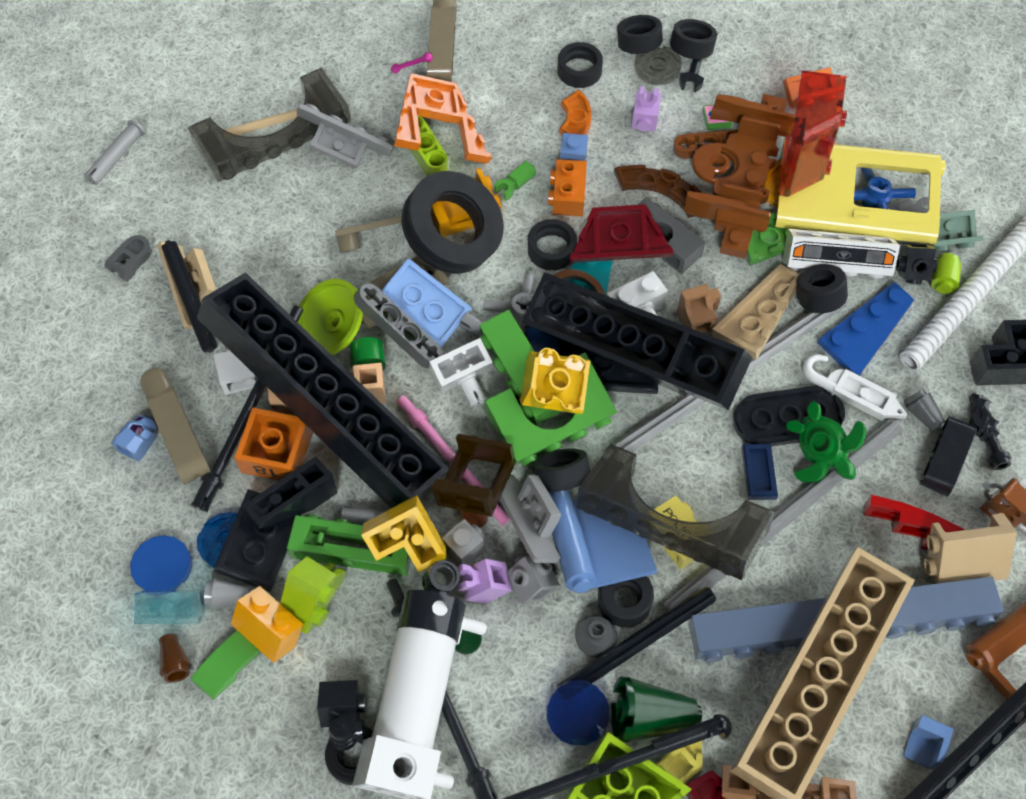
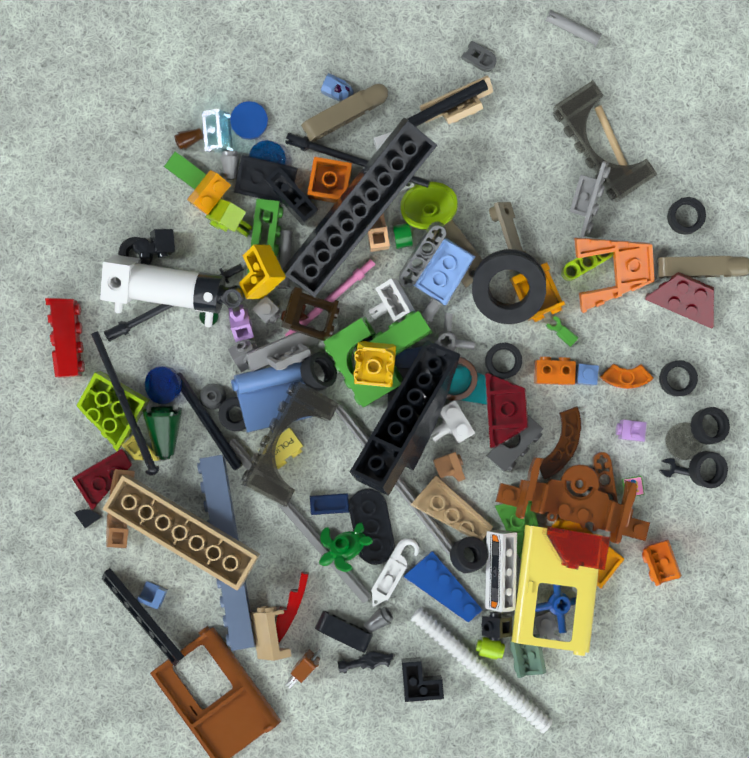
camera: 85 degrees right, 25 degrees up
(379, 62) = (701, 212): none -> black tyre
(396, 67) = (670, 232): dark pink hinge -> none
(480, 50) = (687, 298): none -> wing

